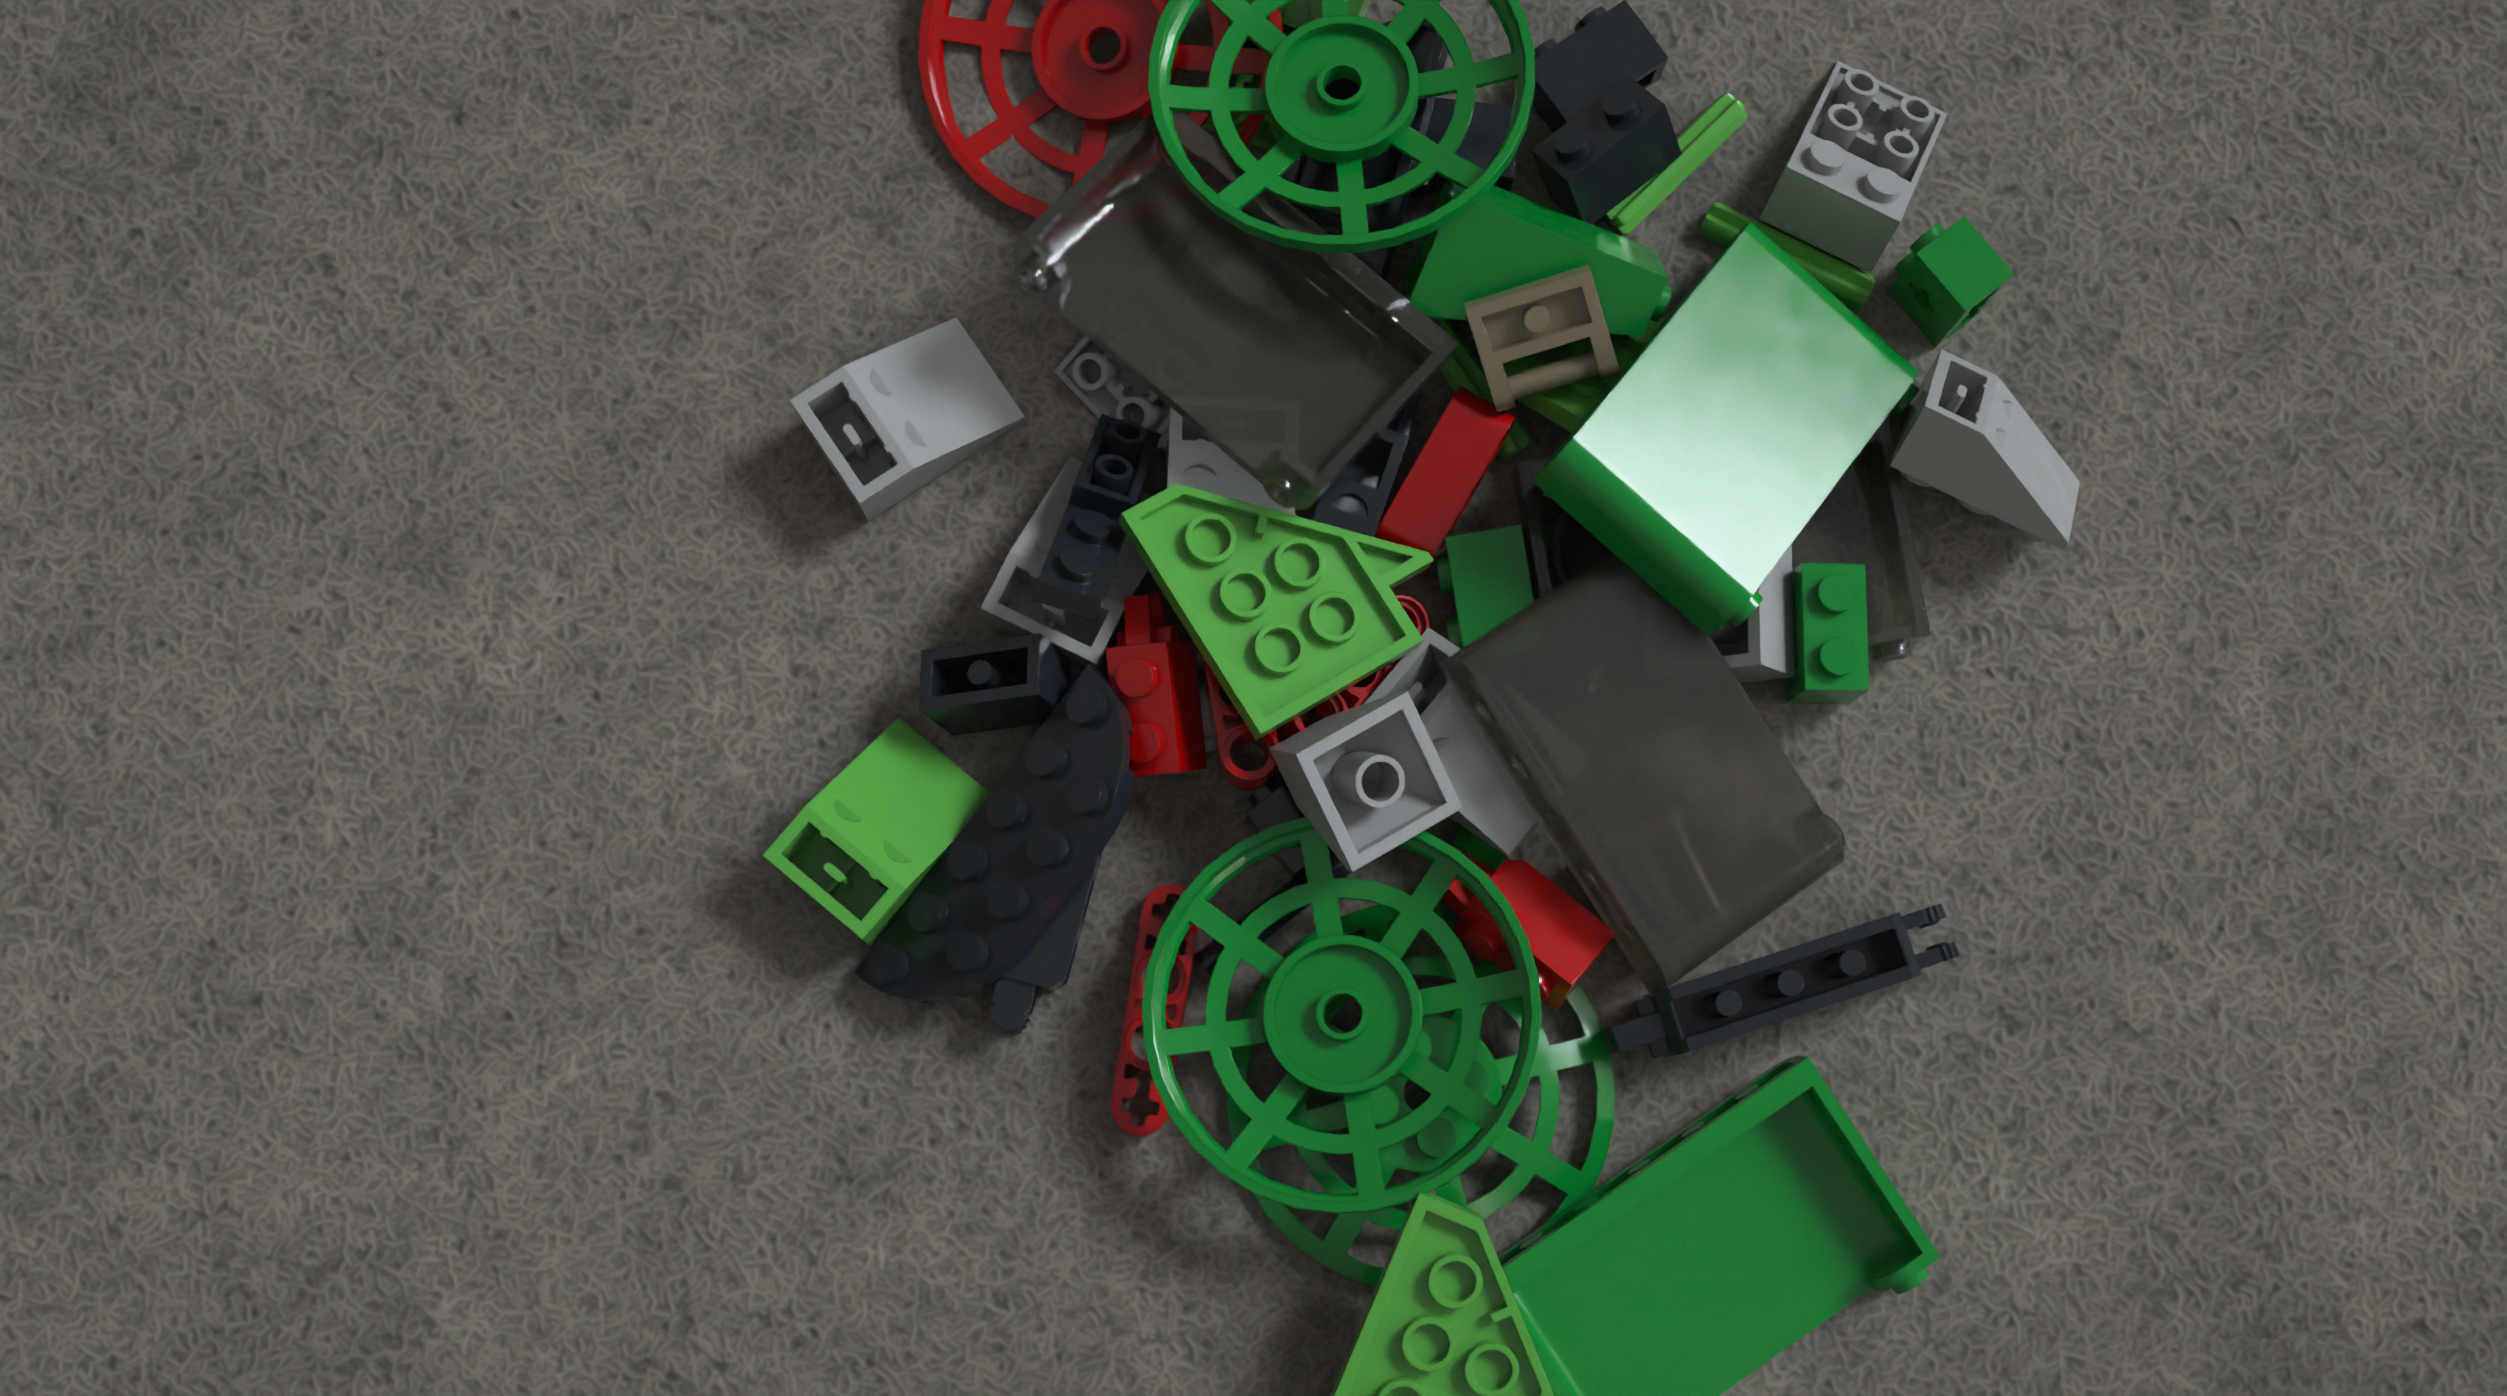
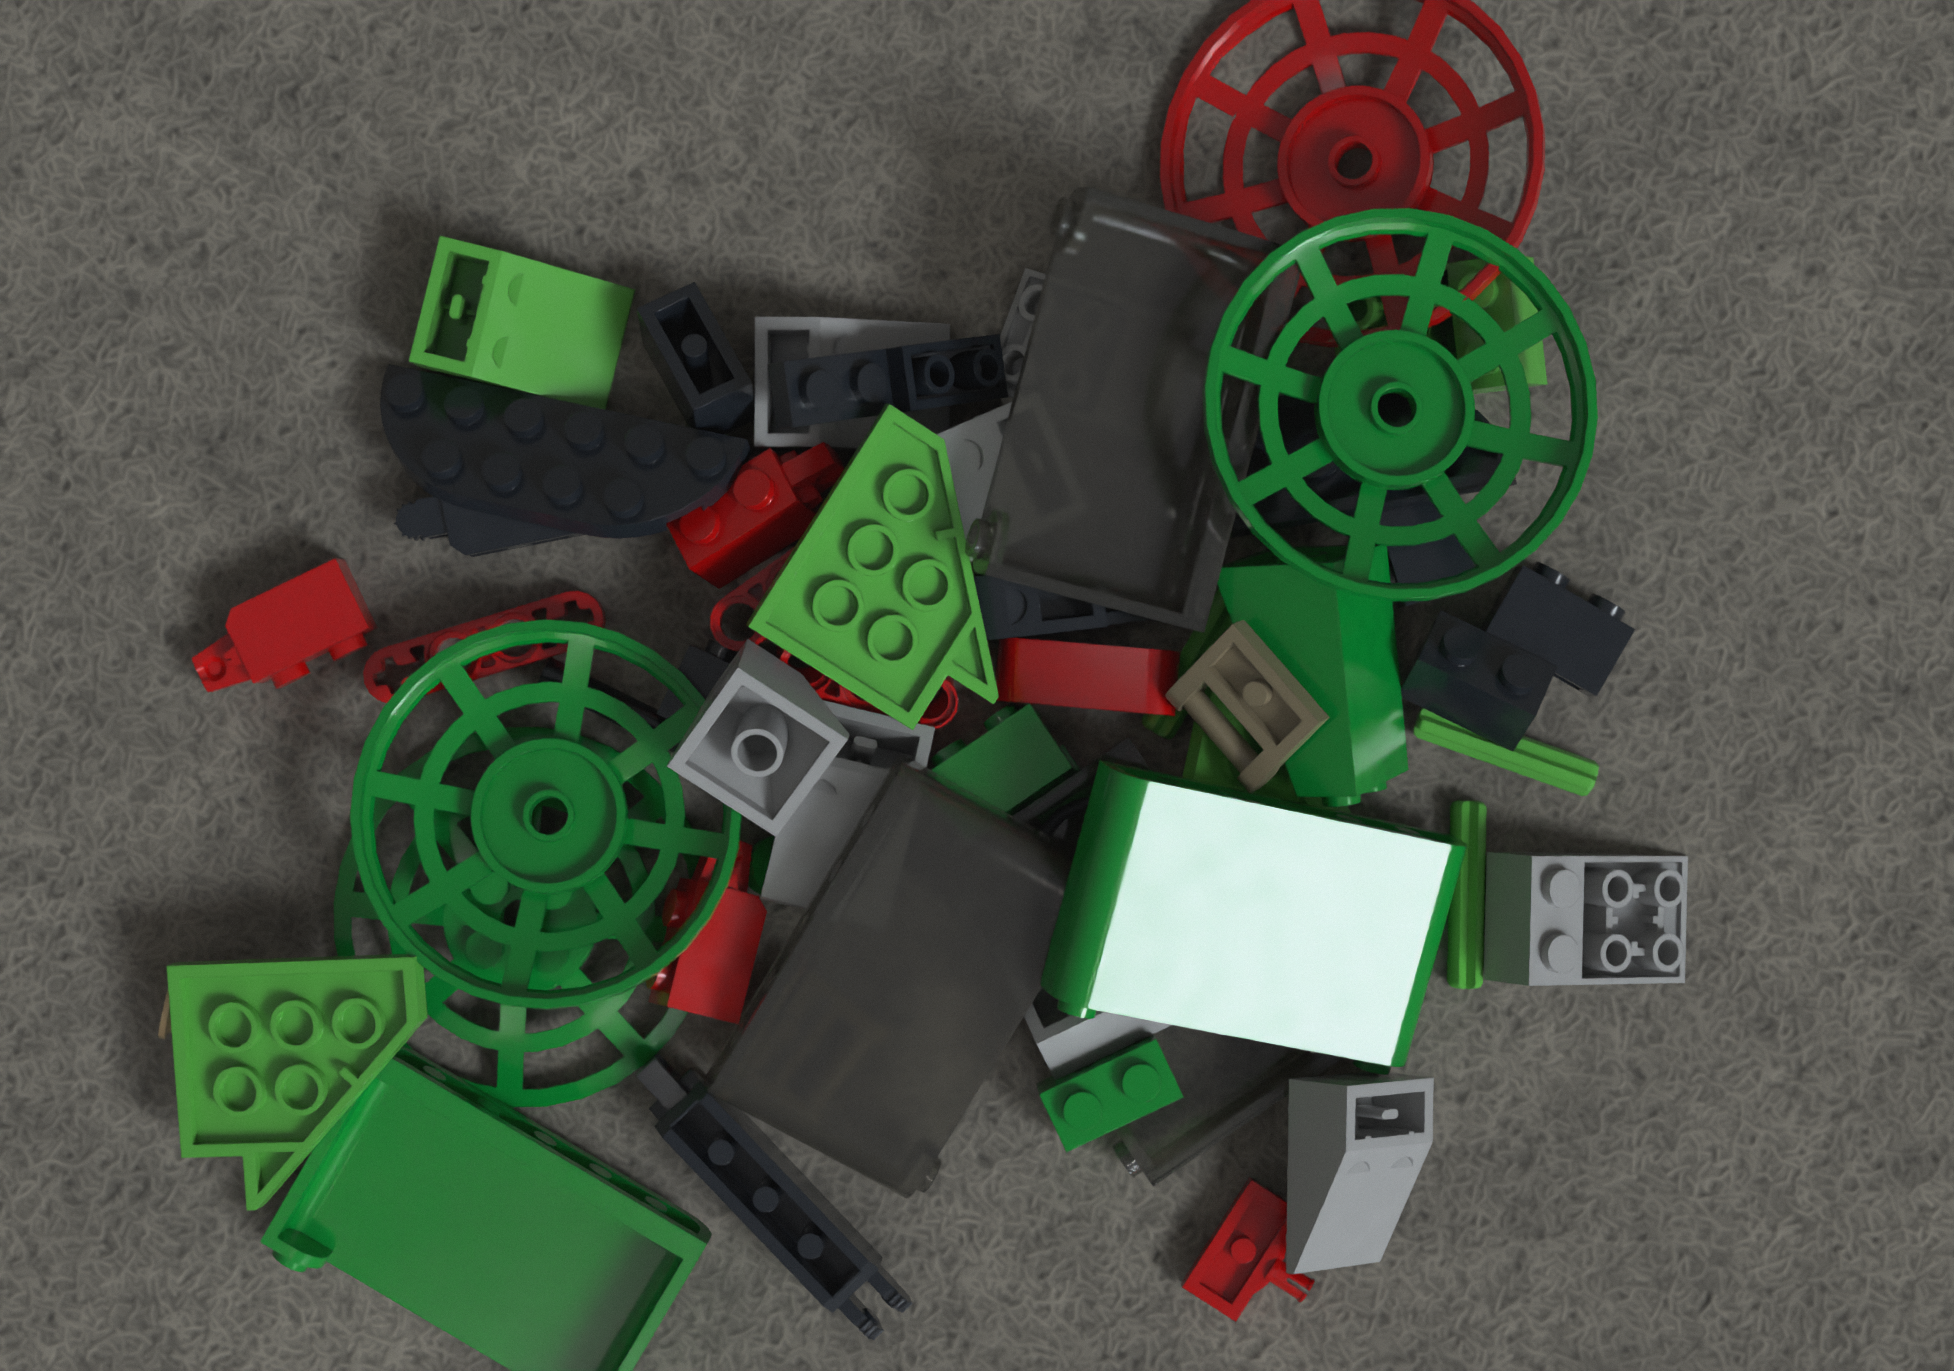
camera: 75 degrees right, 10 degrees up
(906, 414) = (913, 156): light grey slope -> none
(1051, 1184) = (287, 628): none -> red hinge
(1948, 279) = (1502, 1054): green brick -> none
(2023, 588) = (1245, 1254): none -> red plate

